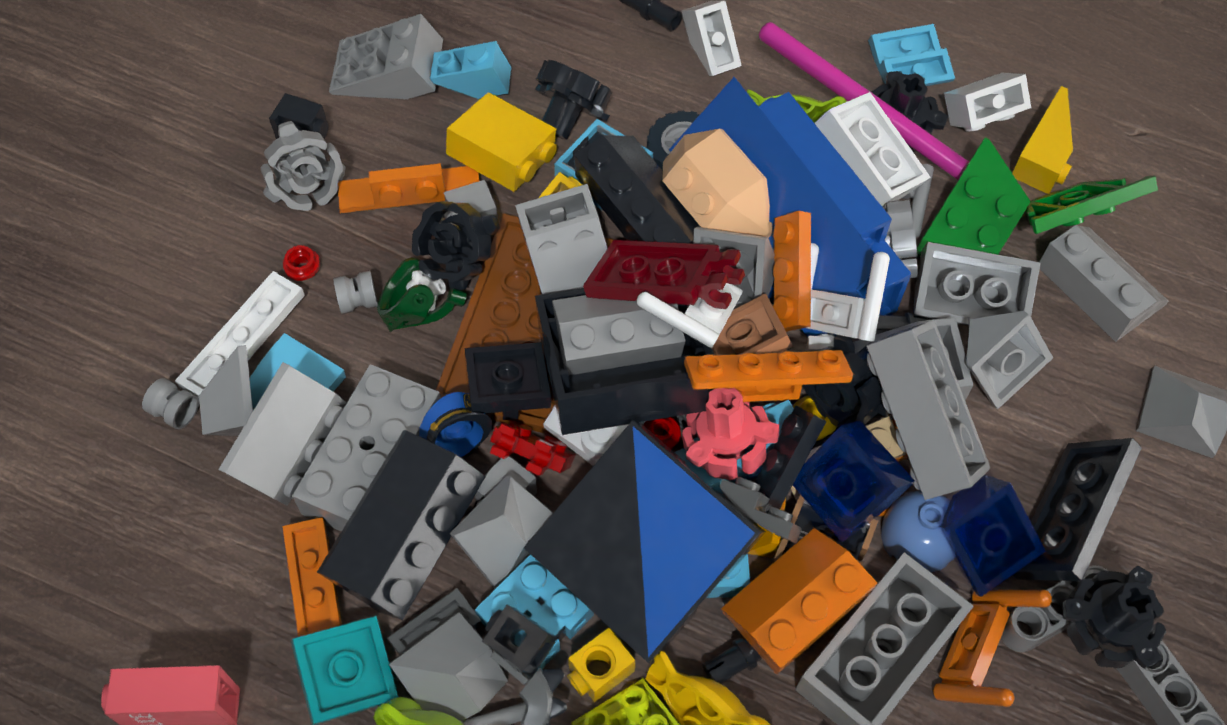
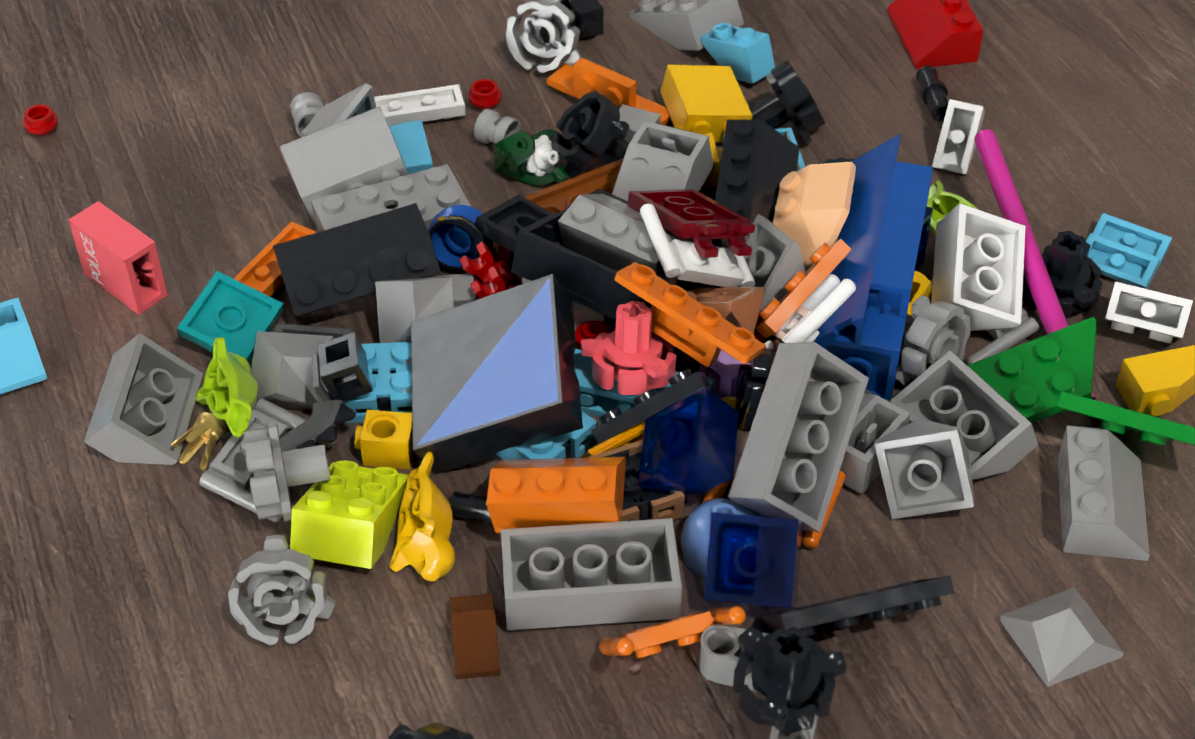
camera: 45 degrees right, 15 degrees down
(750, 502) = (593, 411): dark grey slope -> none

